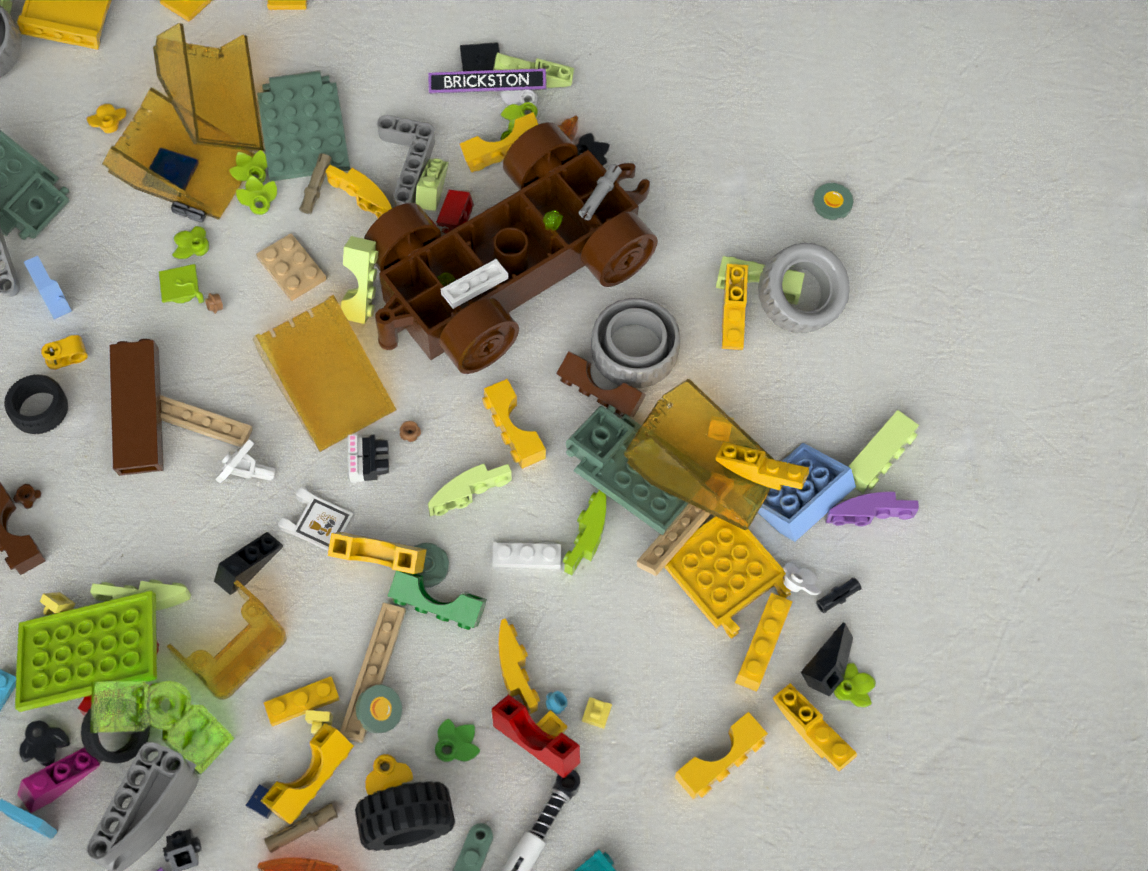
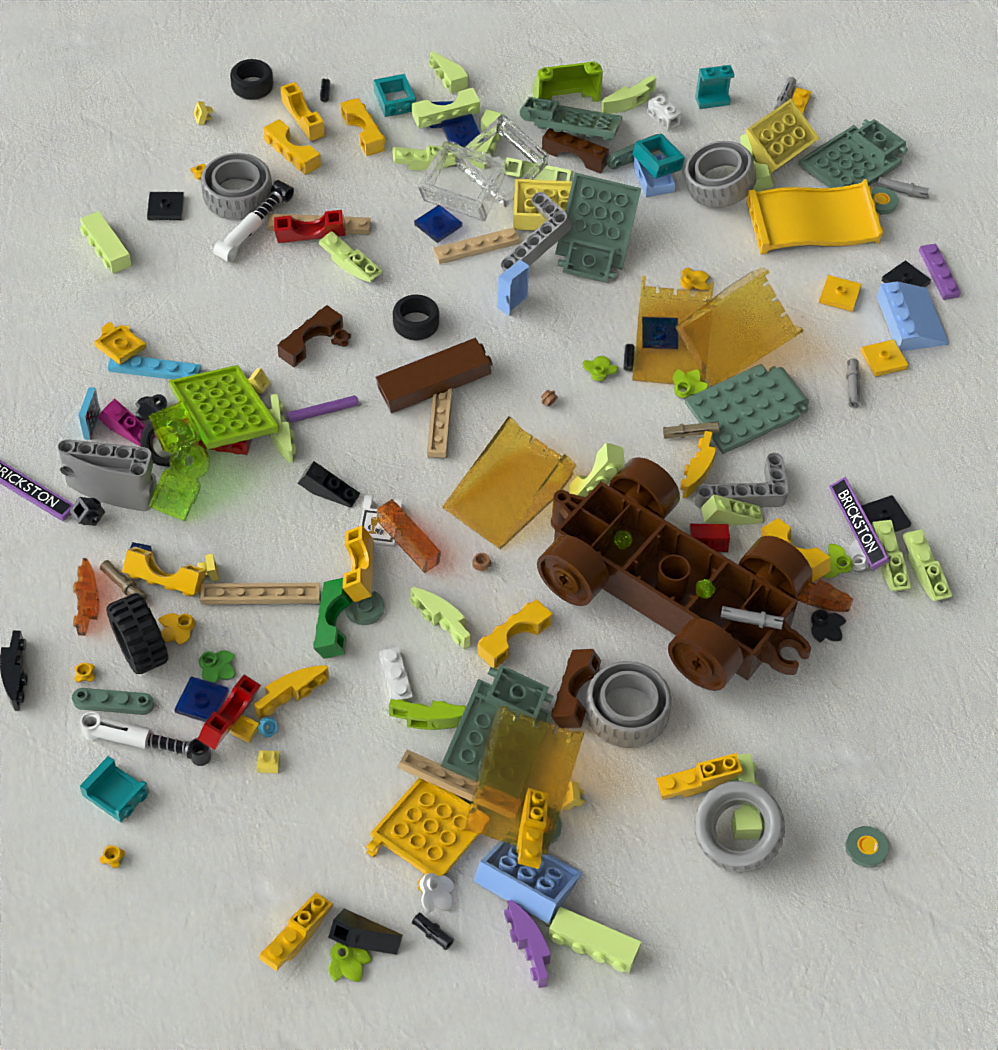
camera: 75 degrees right, 10 degrees down
(65, 352) = (467, 319): yellow piece -> none
(127, 542) = (323, 408): none -> medium lavender axle
(180, 284) = (556, 371): lime hat -> none
(242, 655) = (251, 504): clear yellow windscreen -> none
(243, 465) = (408, 454): white piece -> none
(256, 192) = (665, 393): lime plate -> none
(291, 267) = (609, 430): tan plate -> none
(298, 701) = (225, 555): yellow plate -> none
(303, 25) = (853, 377): none -> light grey pin
(354, 492) = (408, 536): none -> clear orange brick
(363, 458) = (446, 535): black hips -> none
(379, 709) = (228, 603): sand green tile -> none
(474, 283) = (615, 547): white plate -> none
(498, 768) = (201, 699): none -> clear blue plate
(555, 50) = (925, 567): none -> yellowish green slope
(699, 775) = (272, 877): yellow arch -> none
(763, 642) = (388, 875): yellow arch -> none

